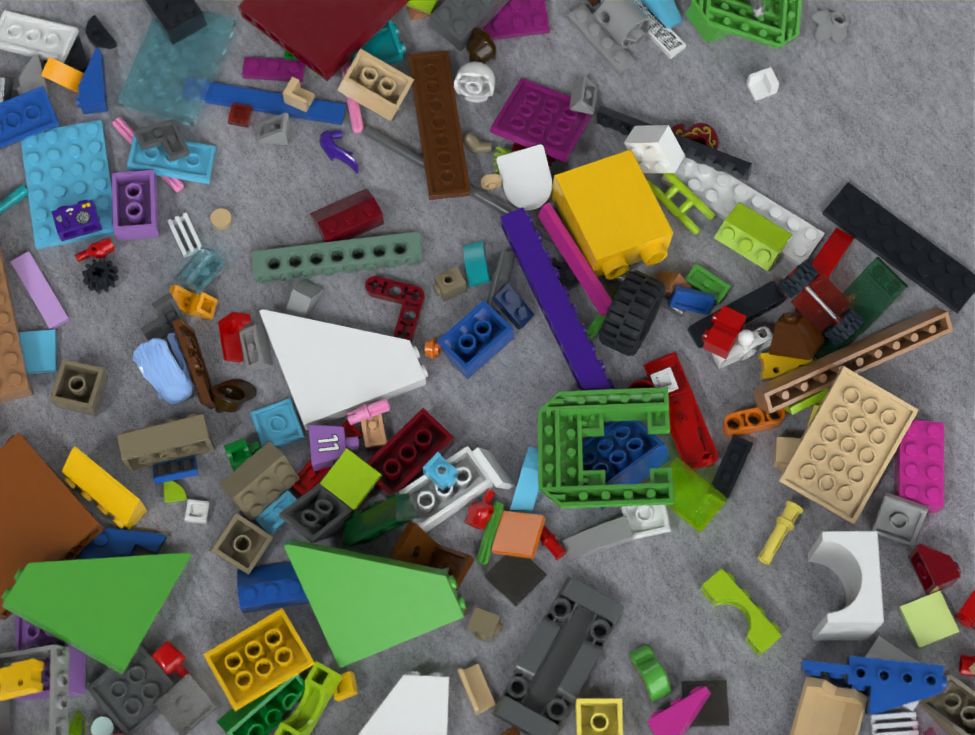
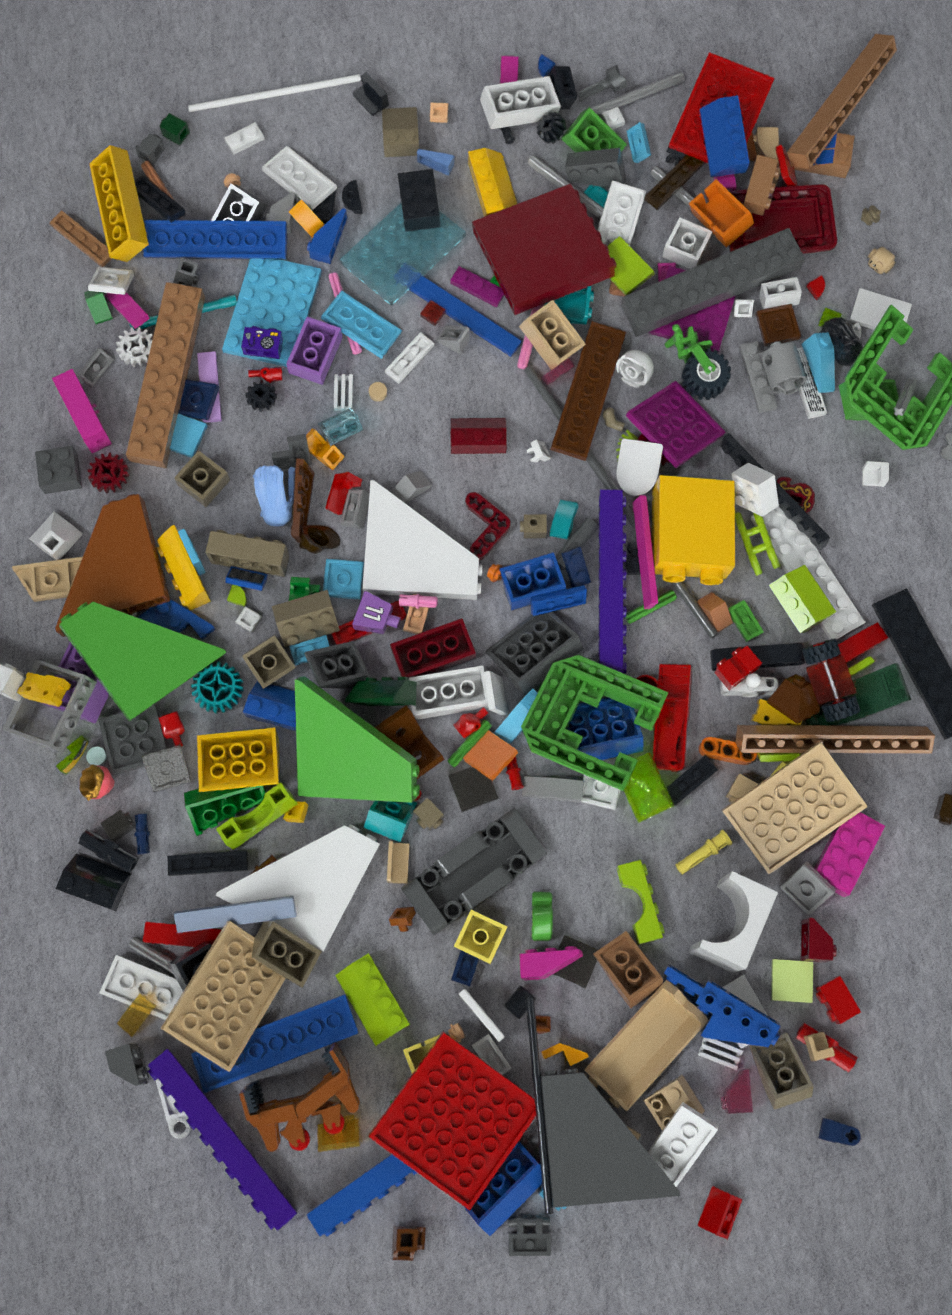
camera: 25 degrees right, 5 degrees up
(34, 308) = (198, 399): none -> dark blue tile
(105, 465) = (191, 552): none -> medium azure tile
(164, 134) = (364, 303): dark grey plate -> none
(207, 593) = (217, 703): none -> teal gear
(237, 170) = (409, 357): none -> white tile
(297, 96) = (485, 317): tan panel -> none
(327, 251) = (395, 440): sand green brick -> none
(333, 151) = (493, 375): dark purple piece -> none
(351, 479) = (377, 649): lime tile -> none
(398, 119) = (558, 371): none -> clear pink beam
(419, 206) = (540, 450): none -> white tile
(441, 480) = (447, 669): medium azure brick -> none
(446, 646) = (390, 818): none -> teal slope
(481, 47) = (653, 341): dark brown piece -> none
(491, 181) = (608, 457): tan tile -> none
(508, 407) = (532, 648): none -> dark grey slope
(511, 347) = (558, 600): none -> blue tile
(546, 55) = (704, 370): none -> piece
(583, 95) = (720, 418): light grey slope -> none
(632, 313) = (668, 617): black tyre -> none
(665, 379) = (670, 684): white plate -> none
(691, 300) = (725, 628): blue tile -> none
(763, 685) = (628, 969): none -> medium nougat slope
(843, 275) = (860, 666): none -> lime tile

